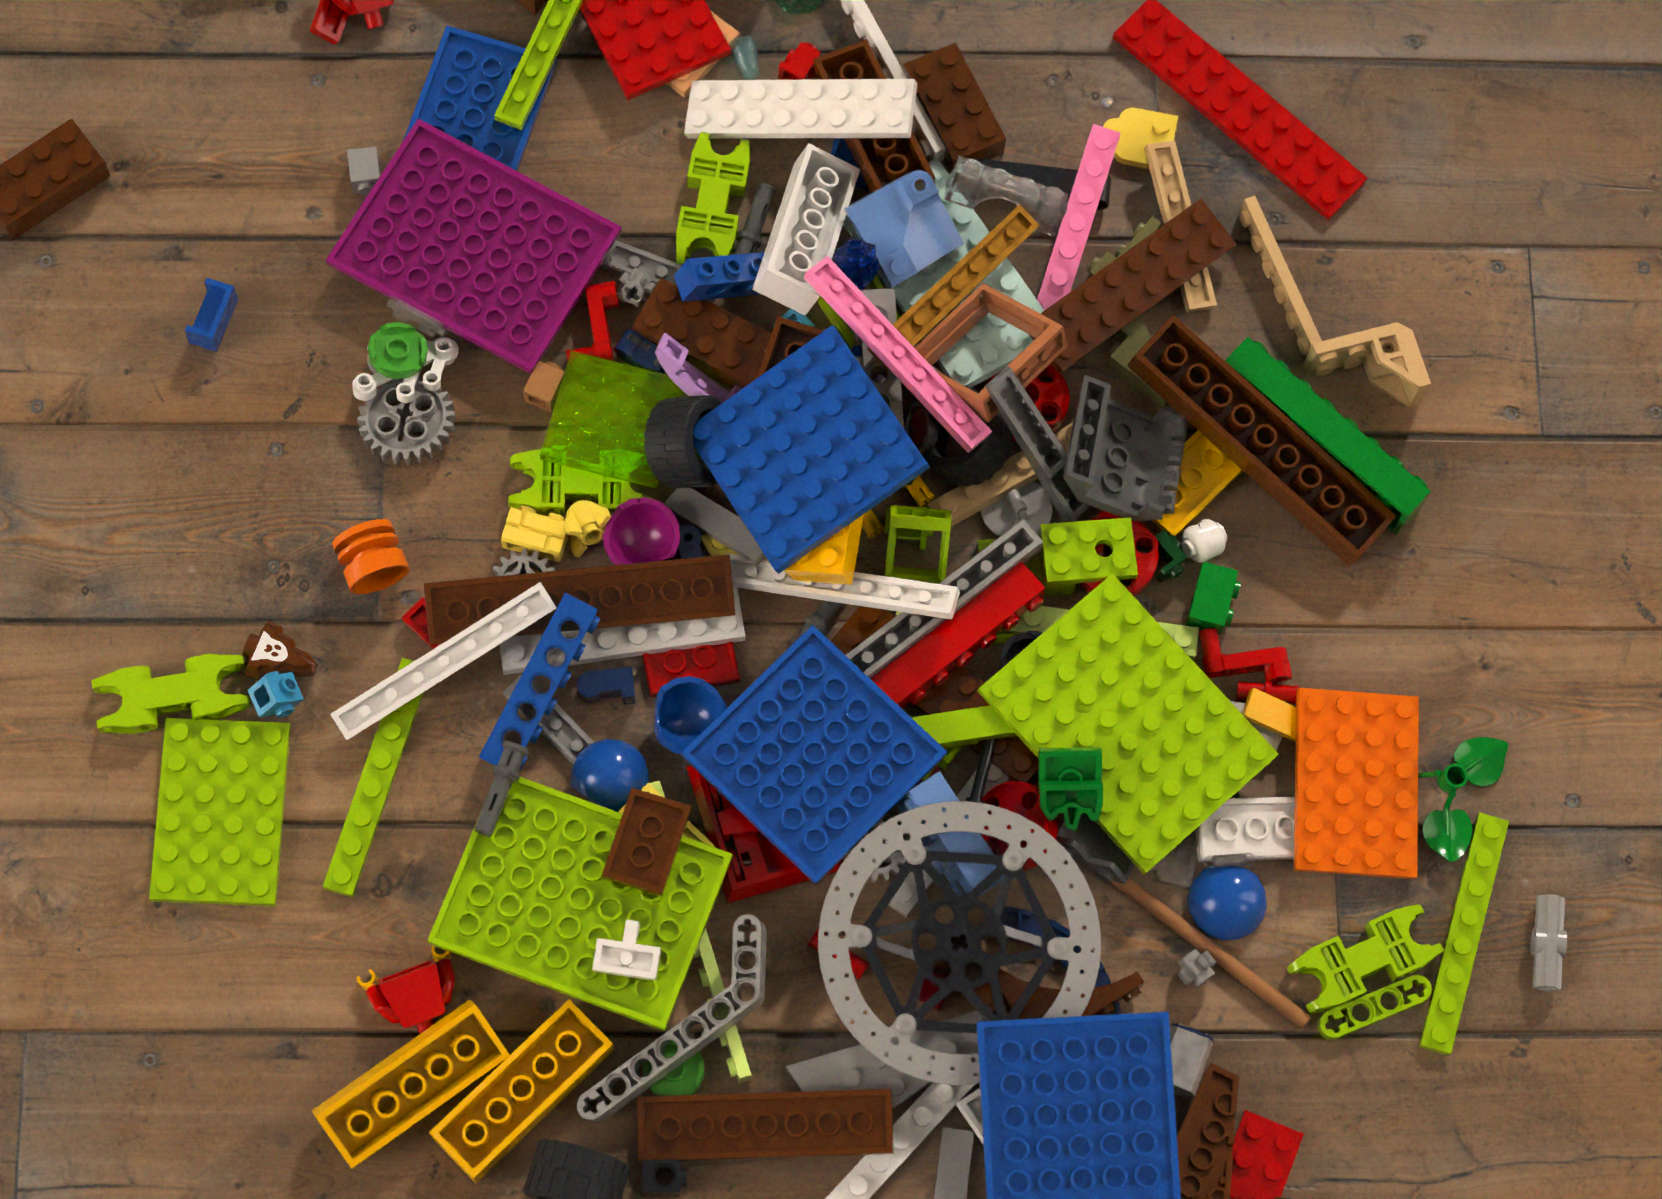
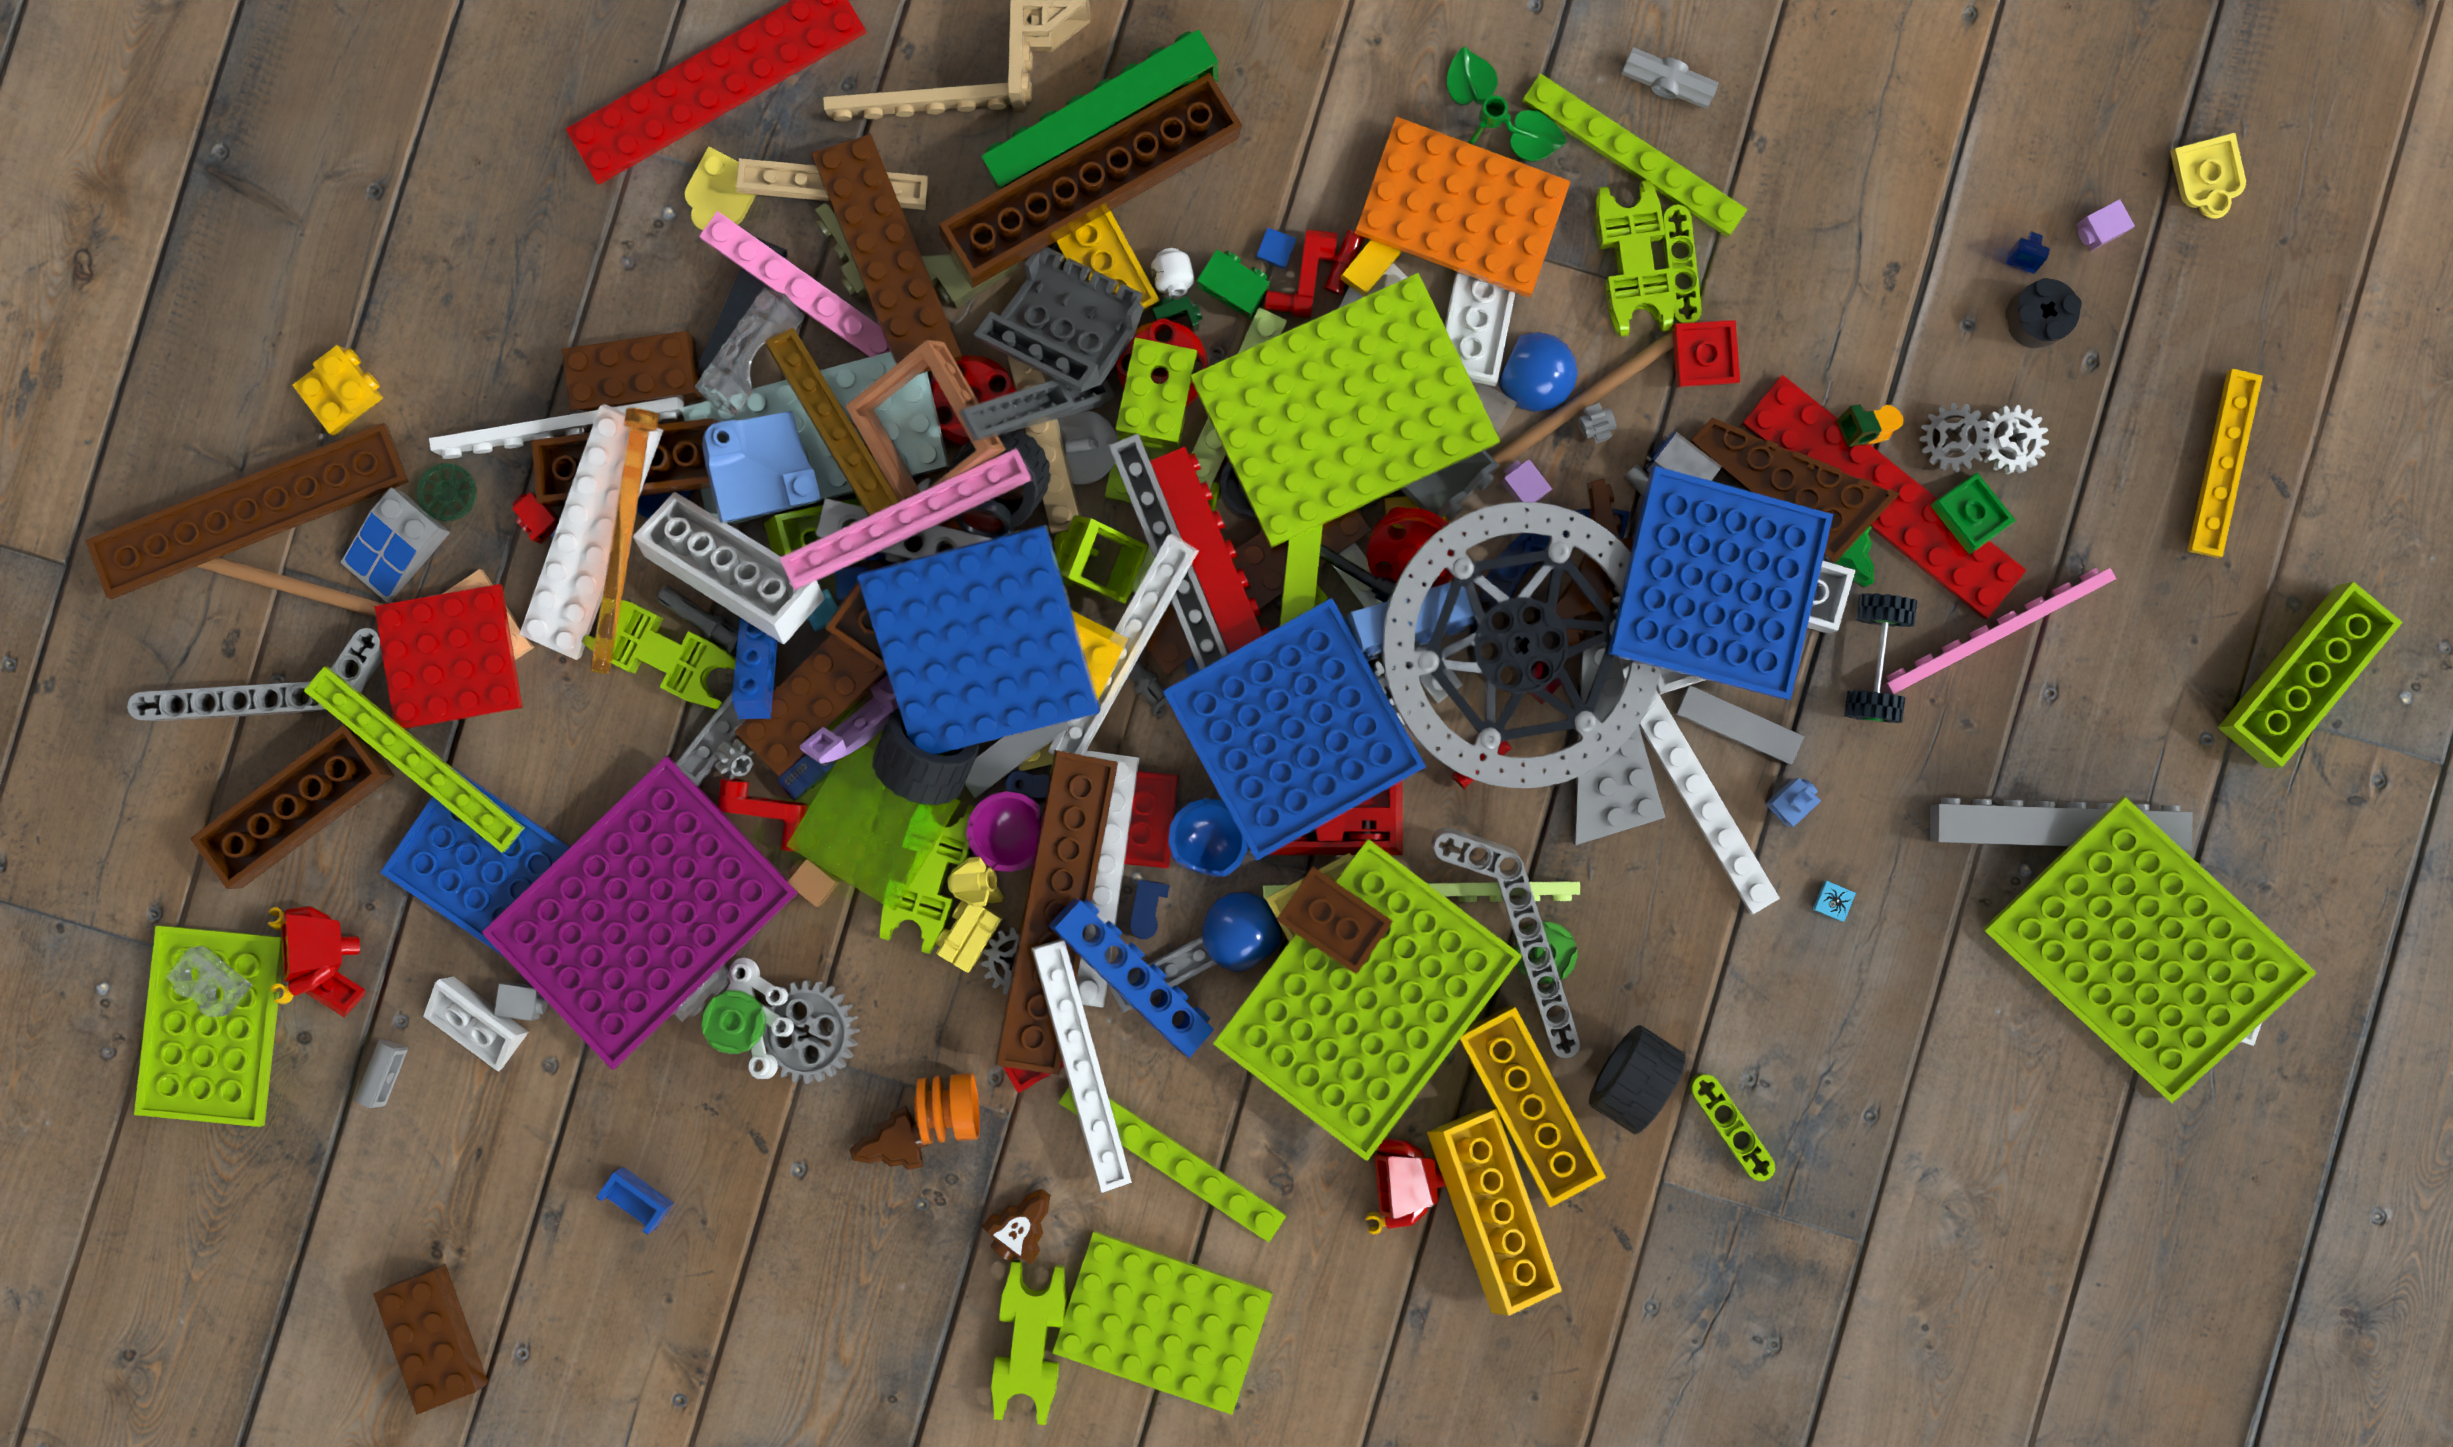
camera: 65 degrees left, 15 degrees up
(267, 75) = (381, 1074): none -> light grey brick
(275, 694) = (1062, 1239): dark azure brick -> none
(323, 520) = (894, 1142): none -> reddish brown rock
(334, 134) = (473, 1023): none -> white slope
(505, 774) = (1236, 1048): dark grey pin -> none
(627, 957) = (1444, 973): white plate -> none
(651, 1168) = (1656, 1006): black brick -> none
(745, 55) = (509, 570): clear light blue cone -> none
(765, 1125) = (1630, 882): reddish brown plate -> none
(857, 261) = (786, 529): clear blue brick -> none
(909, 114) = (640, 424): none -> clear orange piece
(1070, 783) = (1397, 486): green plate -> none
(1117, 917) = (1525, 482): none -> lavender brick
(1229, 860) = (1505, 356): light grey piece -> none
(1259, 629) = (1276, 248): none -> blue tile
(1298, 1052) = (1706, 353): none -> red plate

